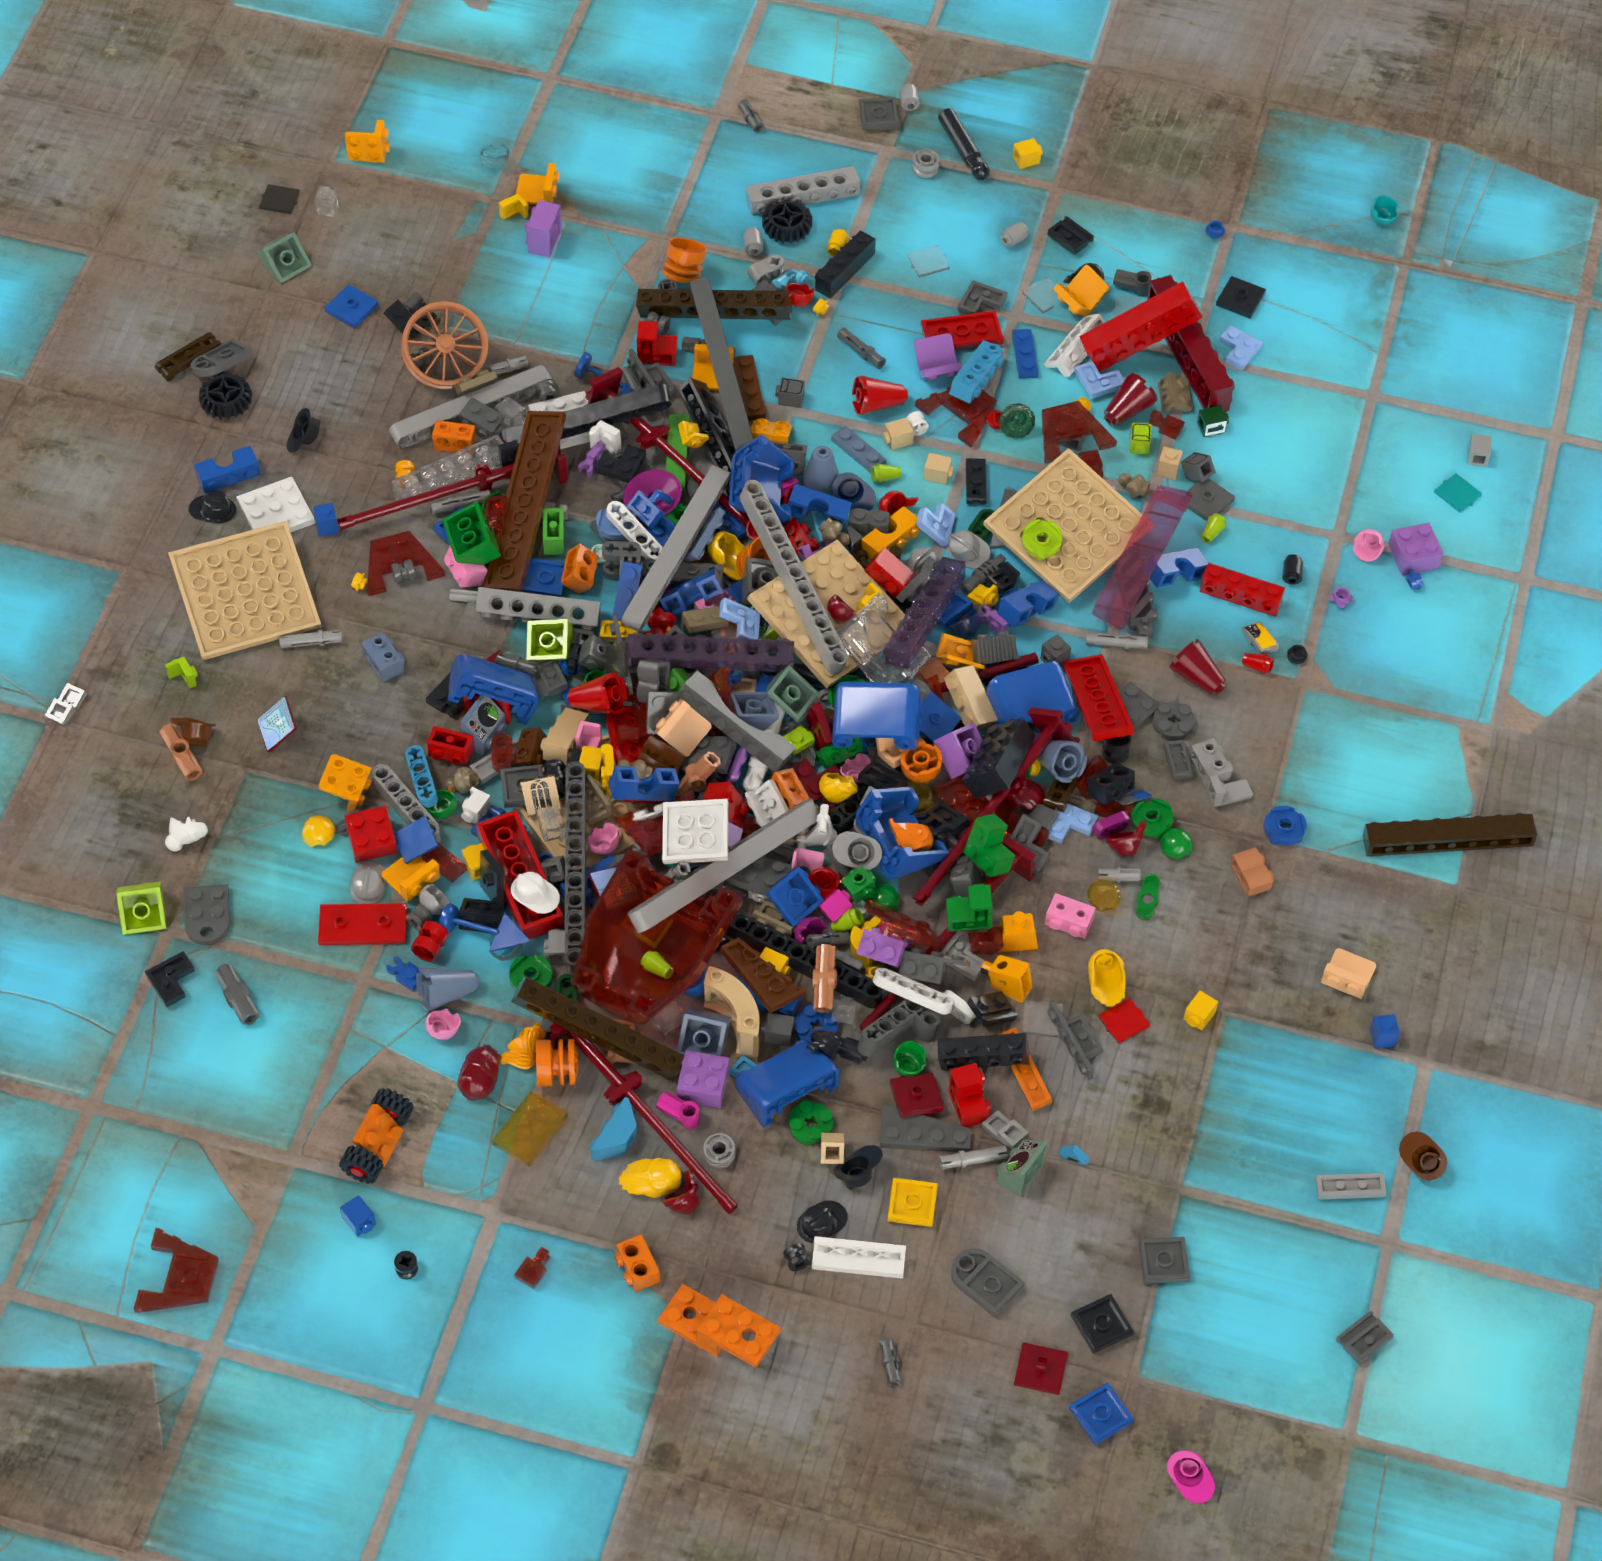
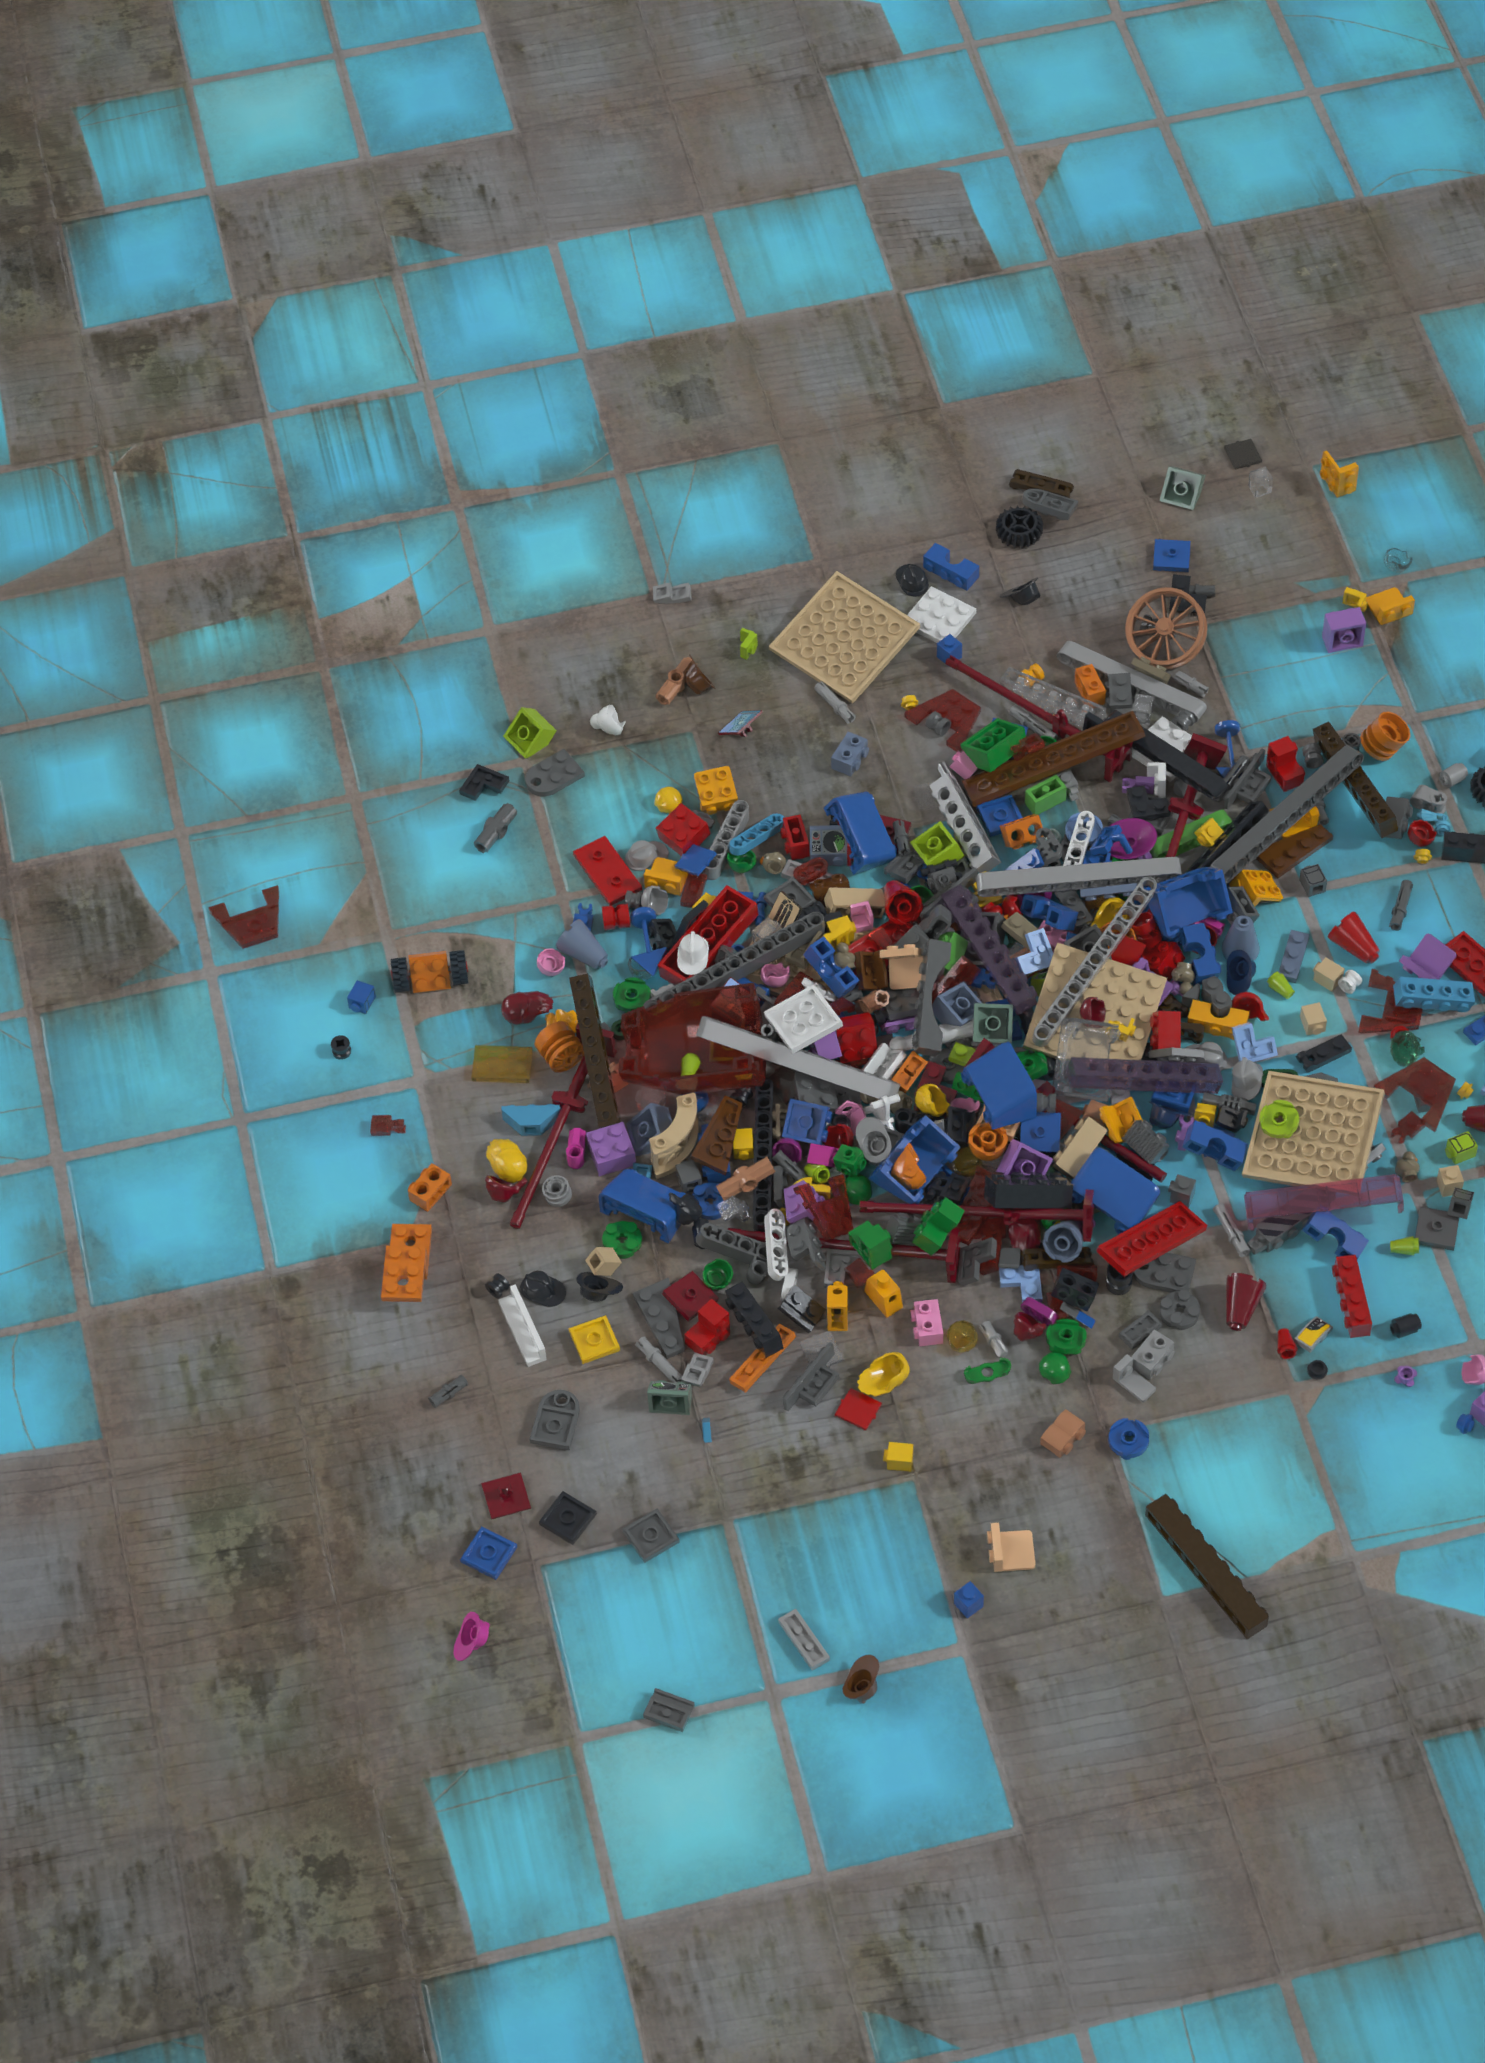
camera: 65 degrees right, 0 degrees up
(475, 806) = (755, 882): white brick -> none

